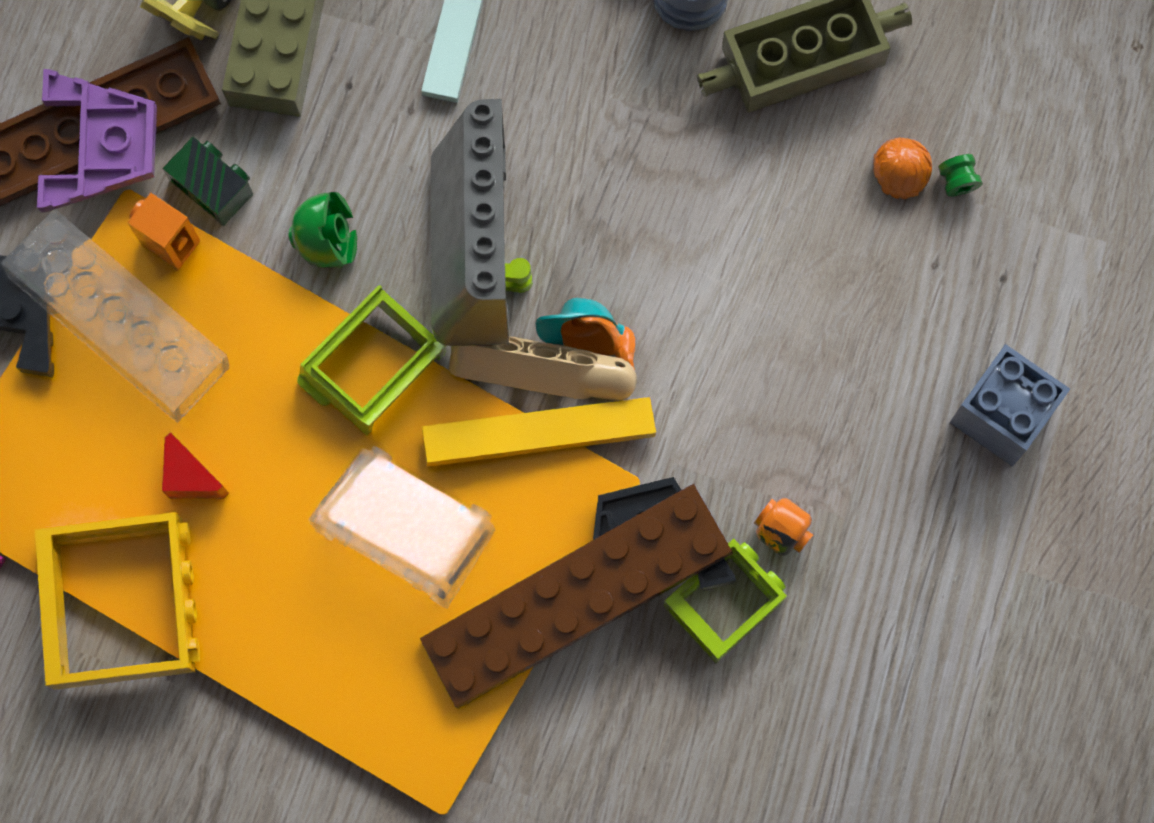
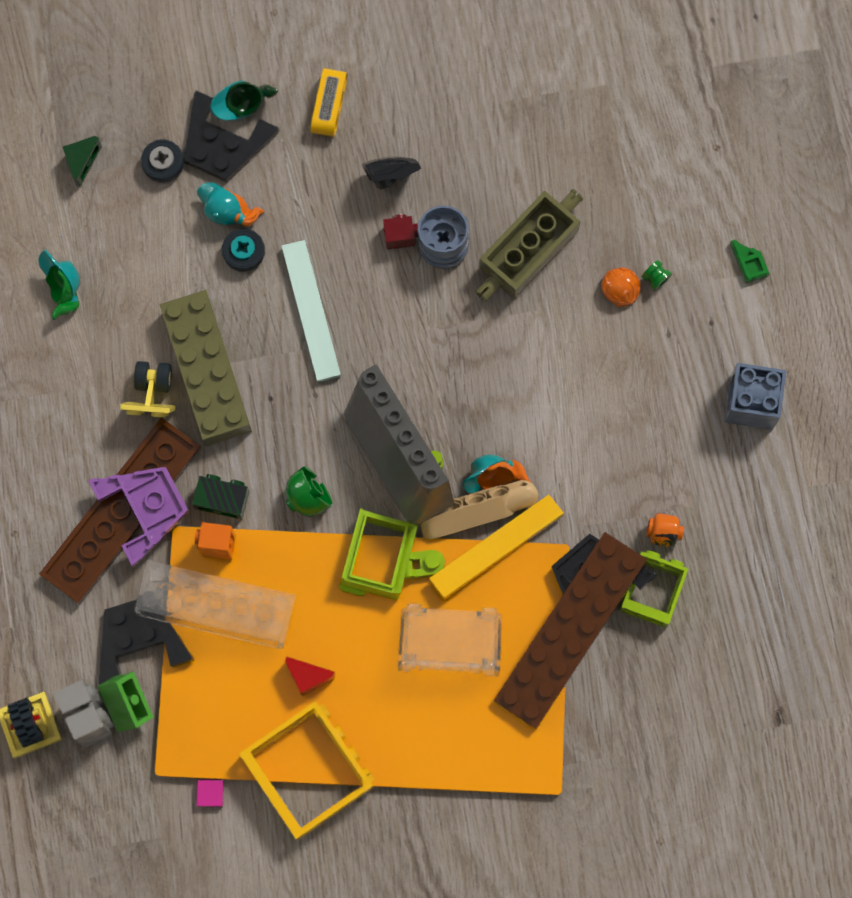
camera: 30 degrees left, 0 degrees up
(437, 405) = (430, 563): none -> lime plate
(1102, 222) = (750, 262): none -> green tile

